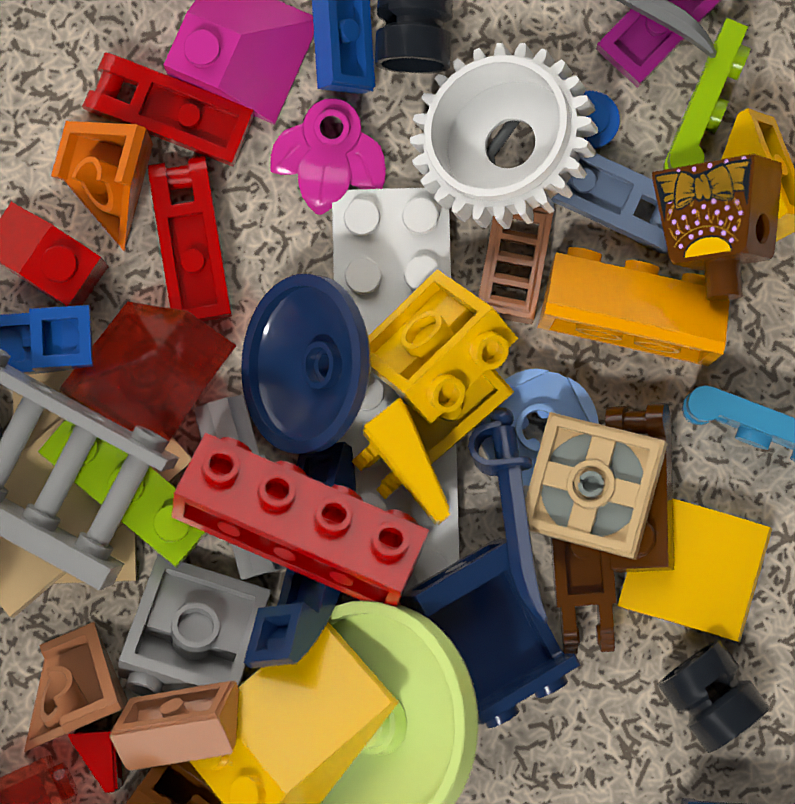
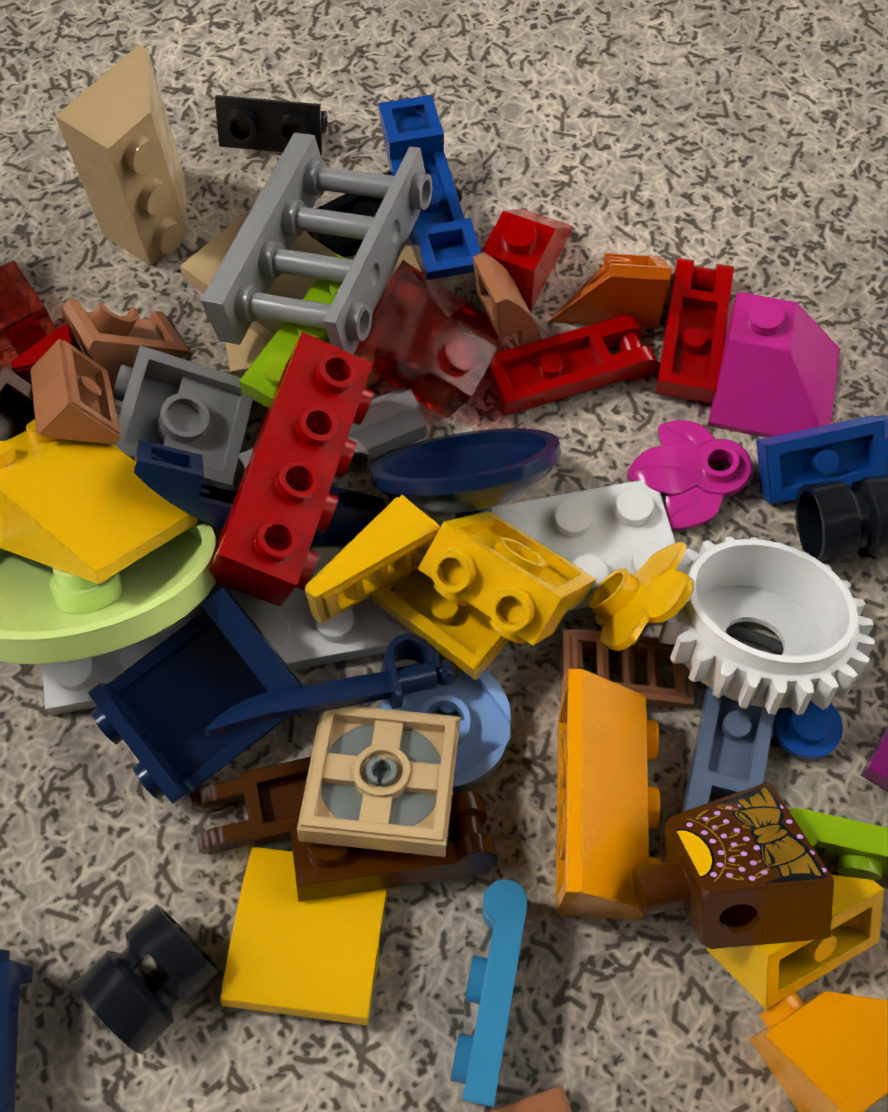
camera: 85 degrees right, 20 degrees down
(132, 291) = (503, 301): none -> nougat slope
(470, 236) = (651, 595): none -> yellow plate

